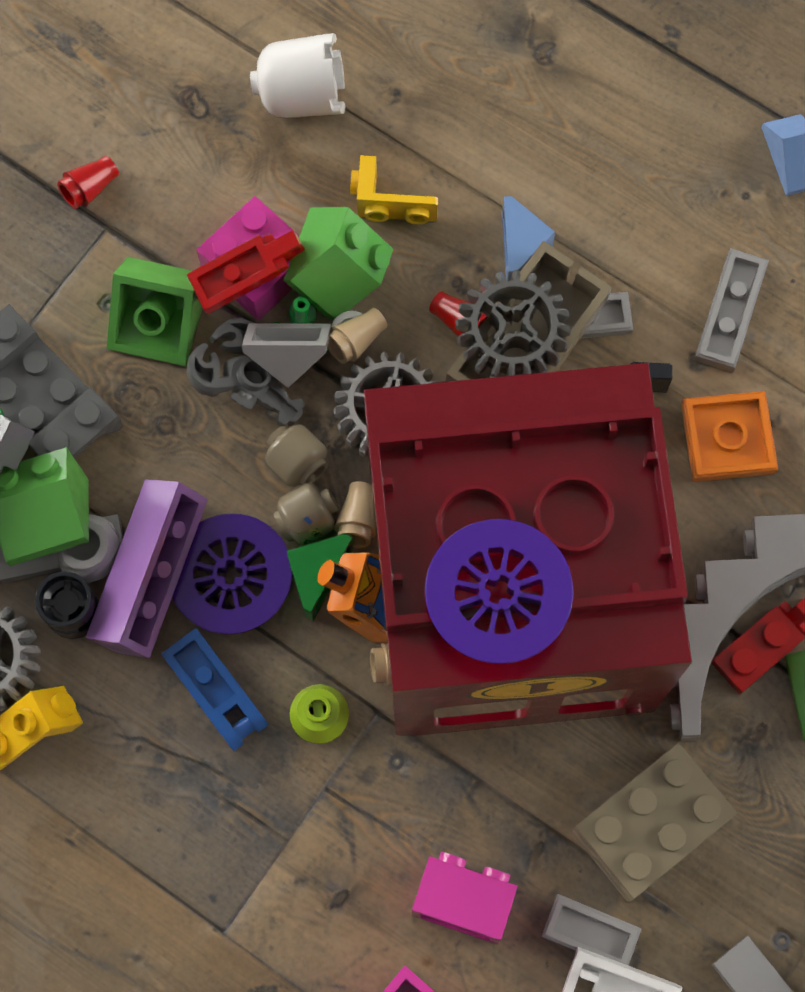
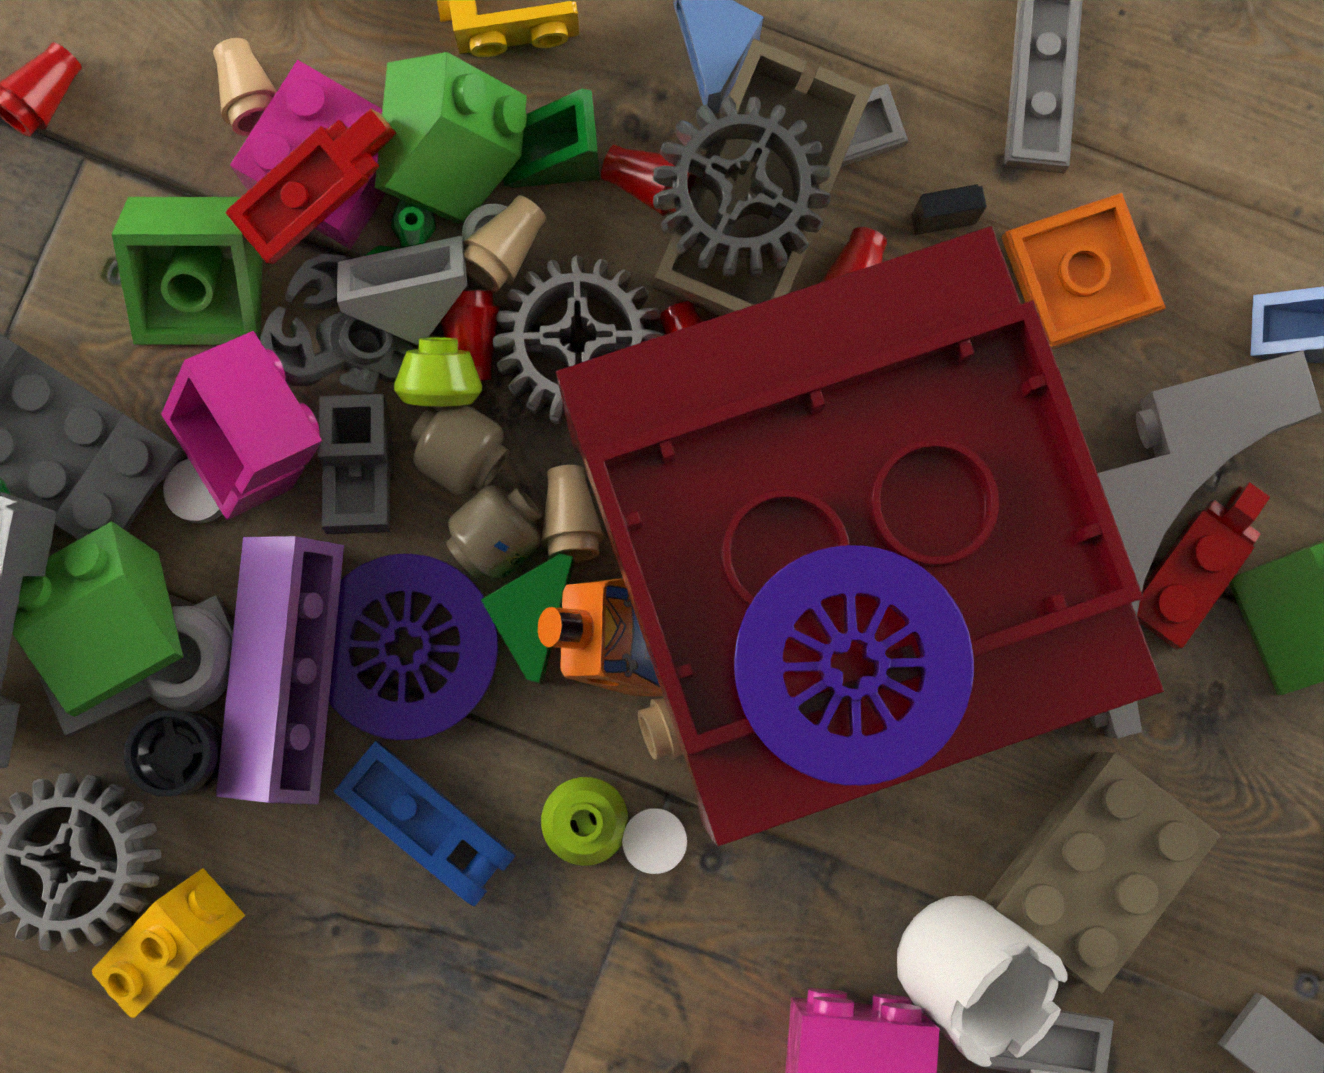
camera: 20 degrees left, 10 degrees up
(123, 447) = (188, 495): none -> white tile
(162, 408) = (241, 424): none -> dark pink piece
(216, 205) = (242, 85): none -> tan cone
(228, 450) = (355, 463): none -> dark grey brick
(294, 405) = (438, 374): none -> lime cone
(320, 386) = (474, 325): none -> red cone
(361, 737) = (654, 841): none -> white tile
(406, 283) = (558, 144): none -> green slope
(555, 868) = (979, 978): none -> white cylinder

